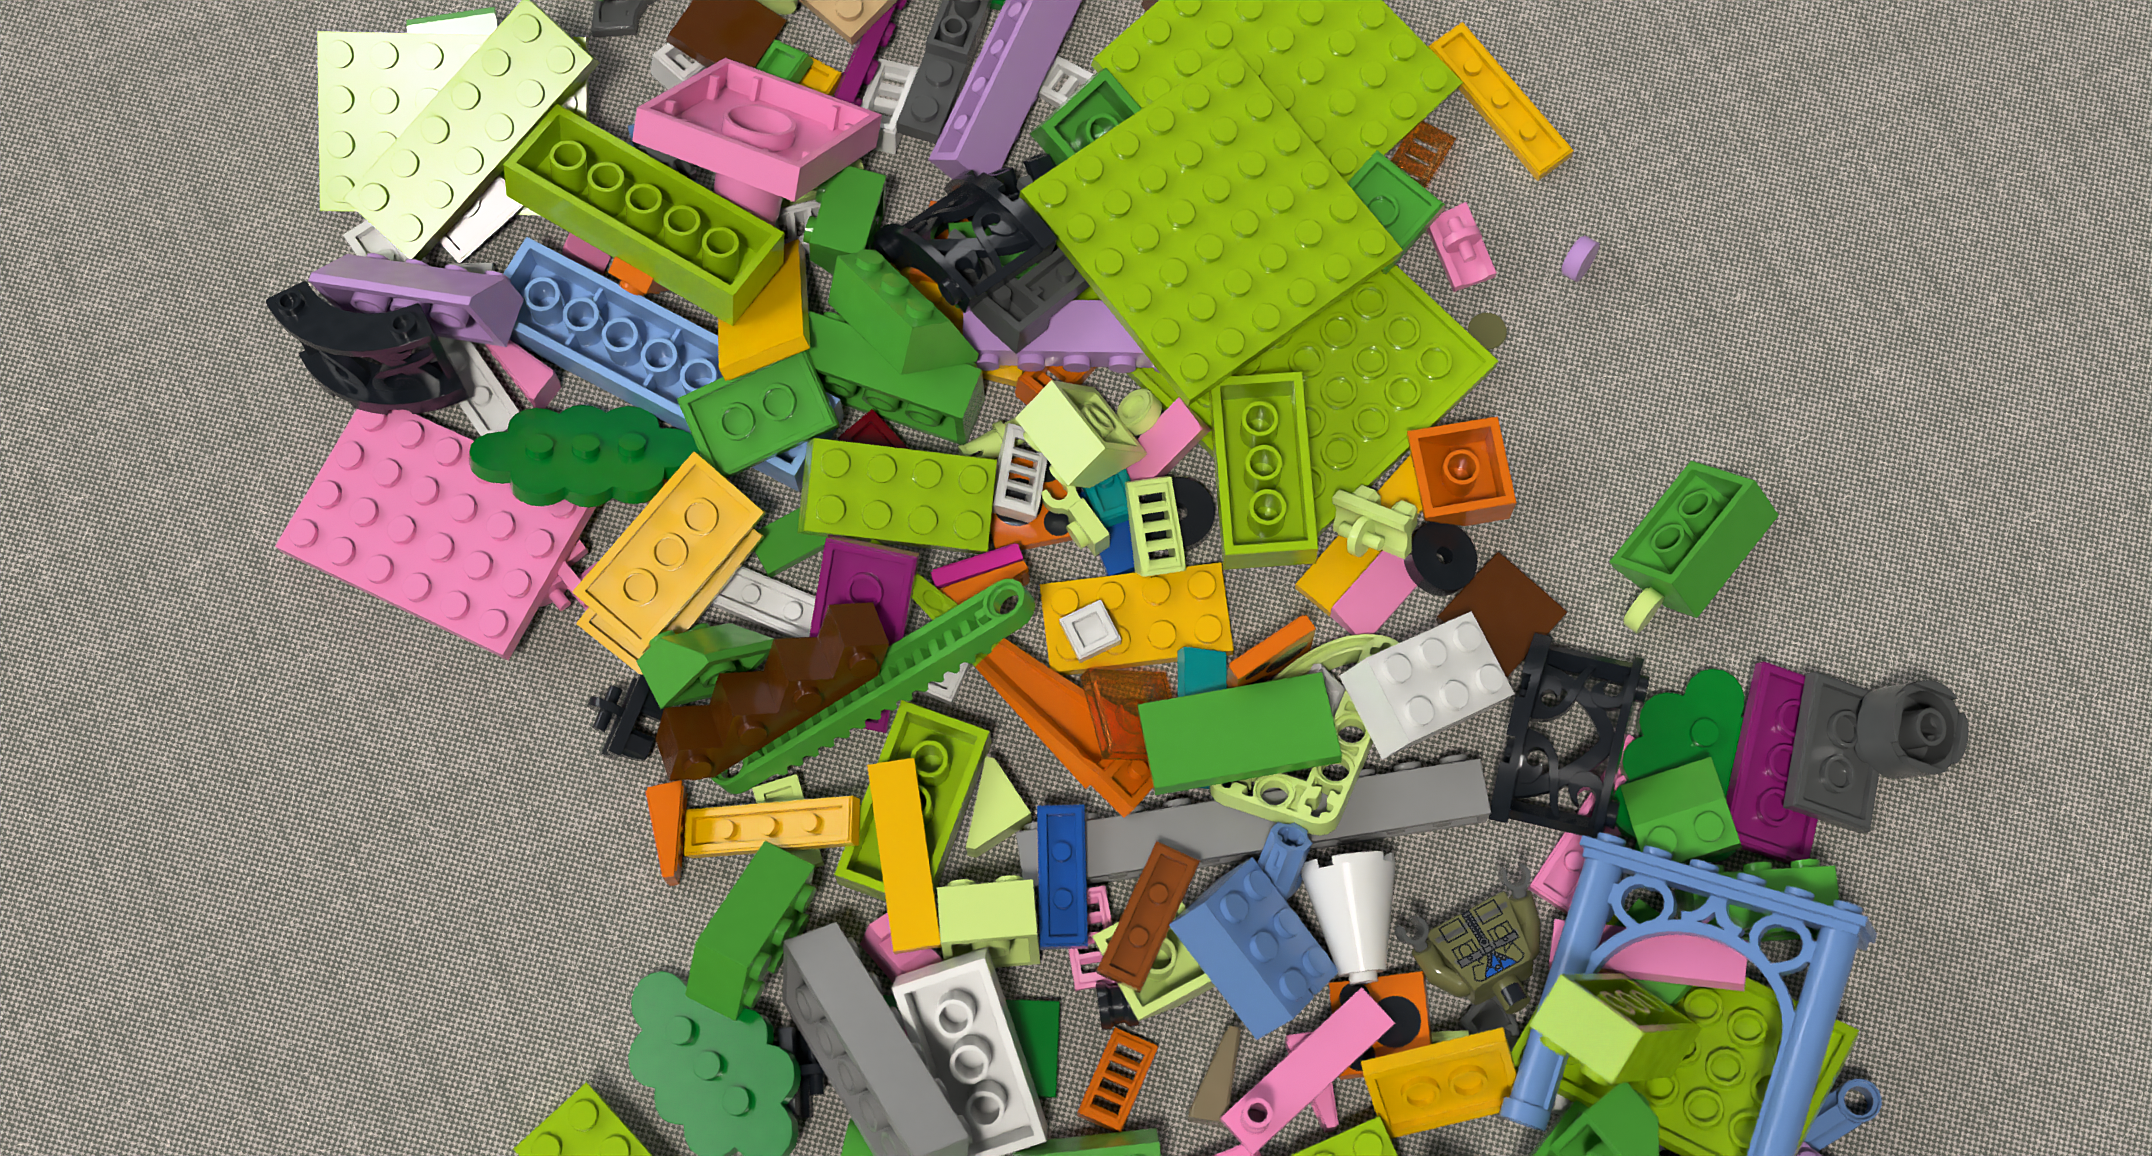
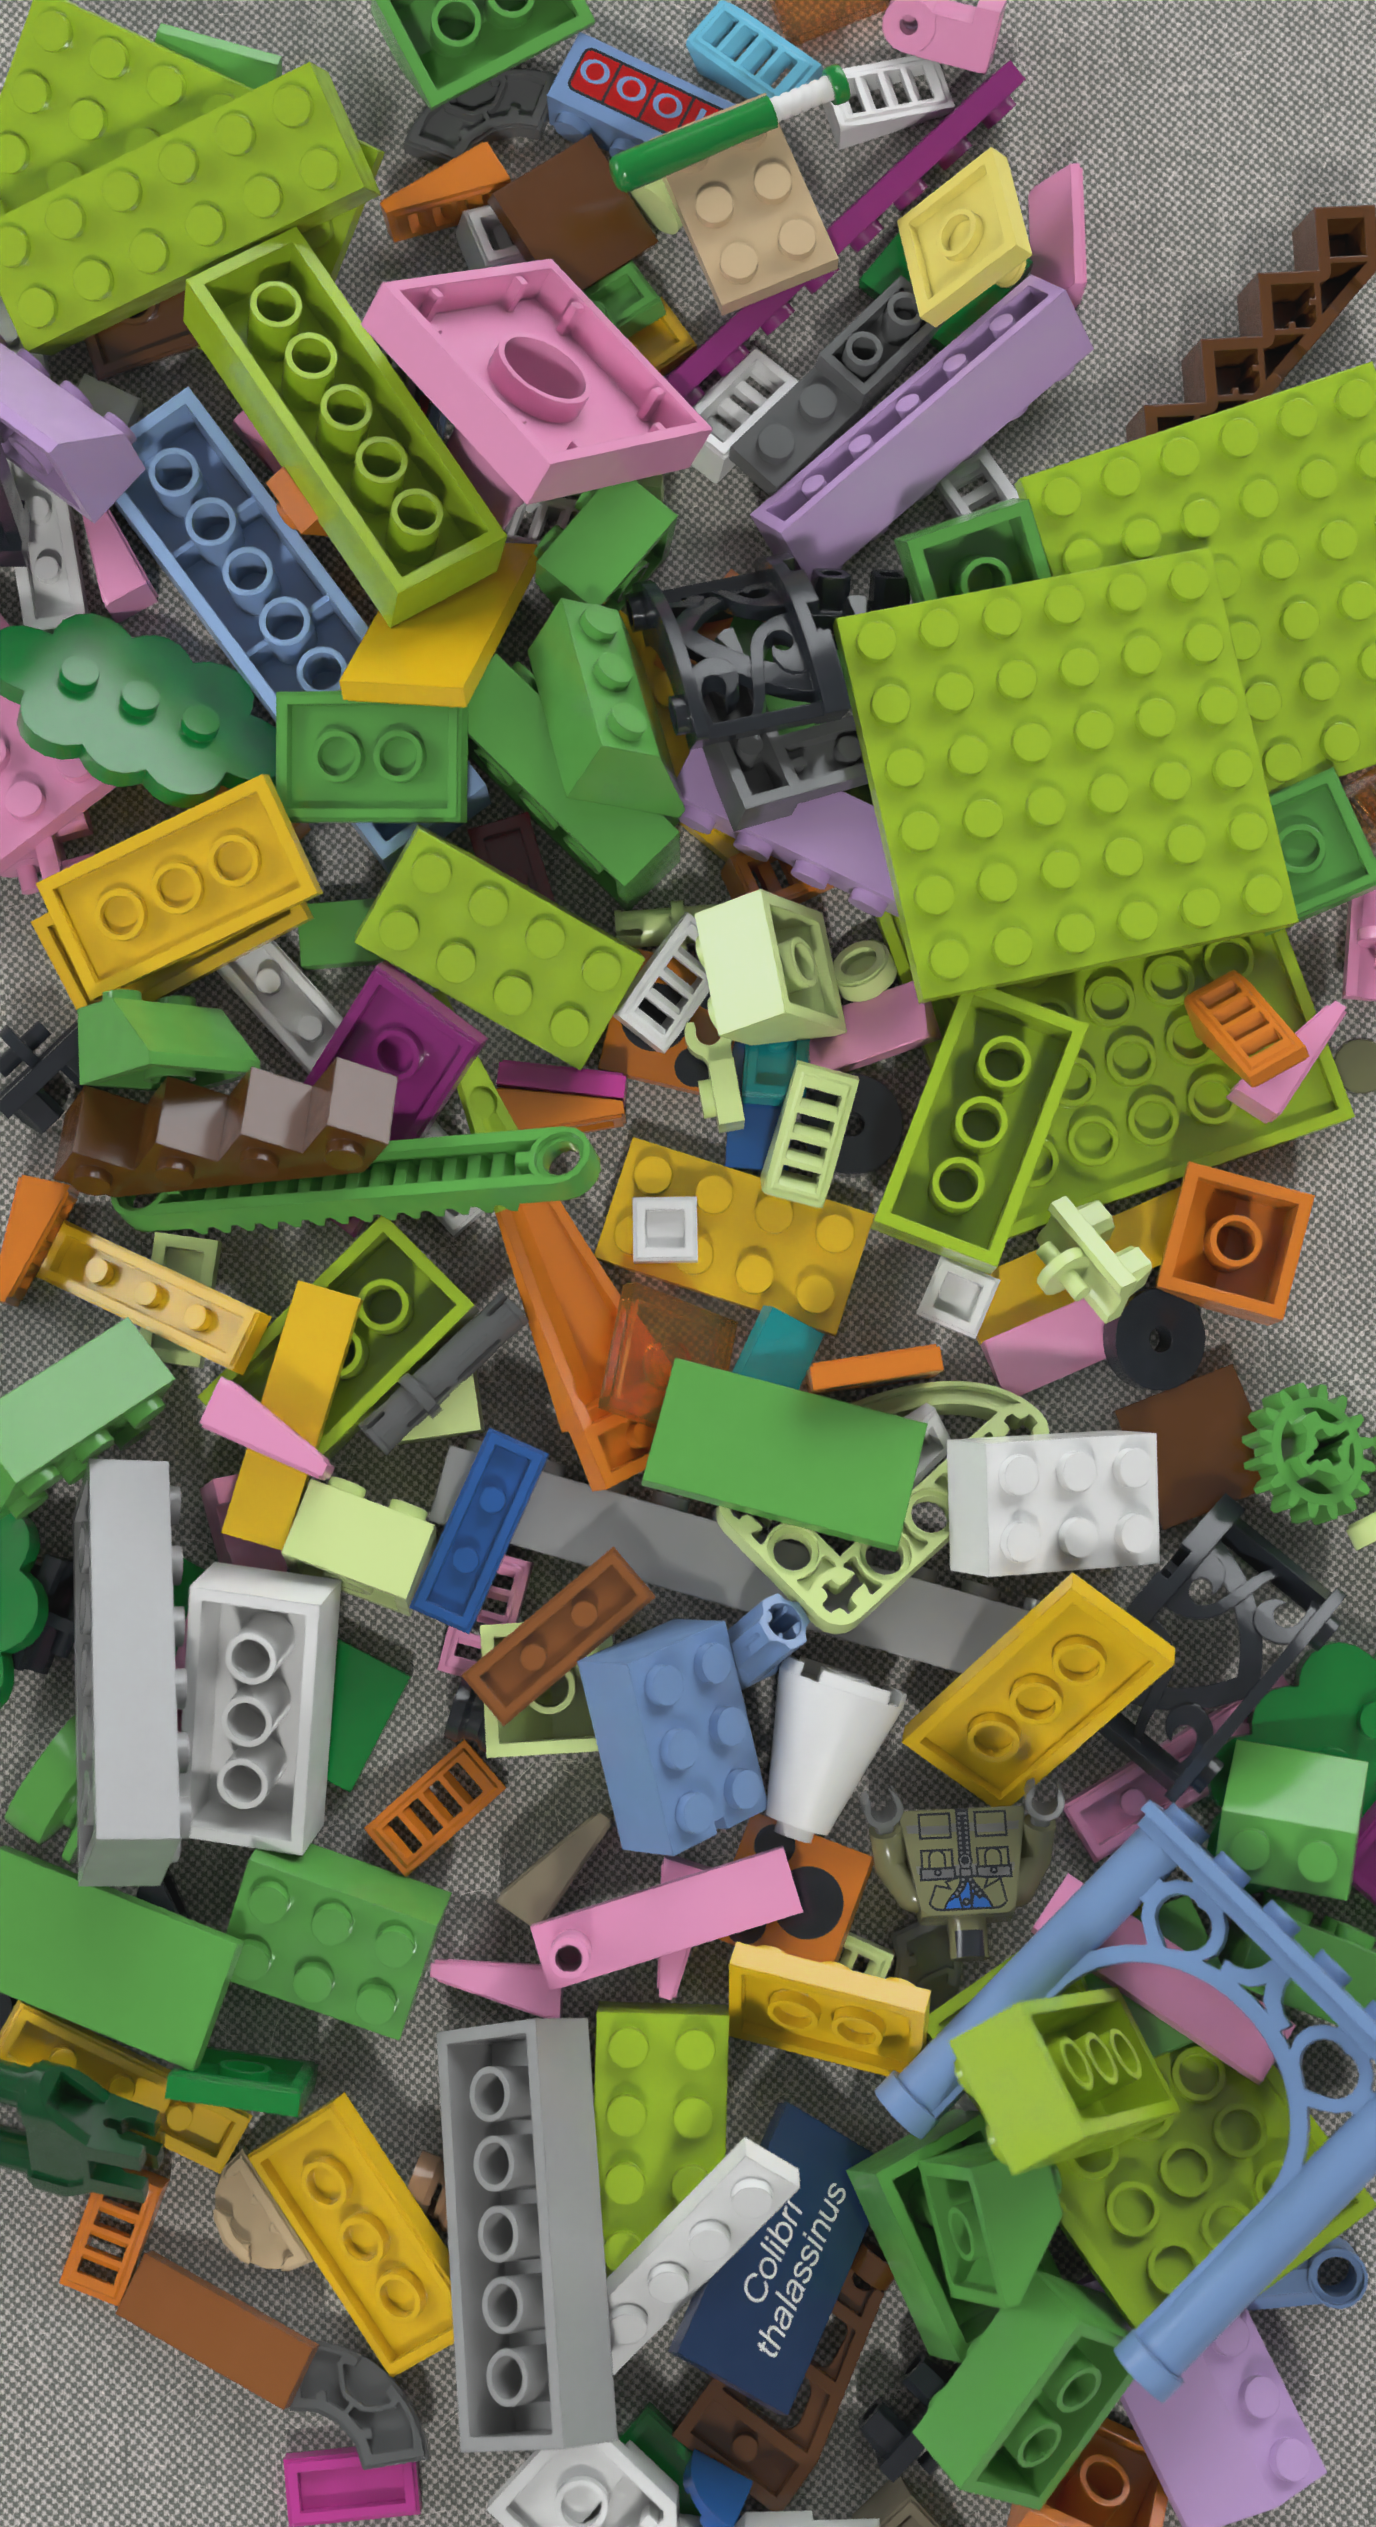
camera: 25 degrees right, 10 degrees up
(635, 49) = (443, 194): none -> orange slope
(887, 868) = (248, 1422): none -> bright pink slope
(983, 801) = (443, 1373): none -> dark grey pin
(1301, 589) = (958, 1297): none -> white tile
(1393, 331) = (1239, 1022): none -> orange slope
(1436, 358) = (1271, 1098): none -> bright pink slope
(1477, 809) = (1038, 1693): none -> yellow plate
(1575, 583) = (1308, 1454): none -> bright green gear

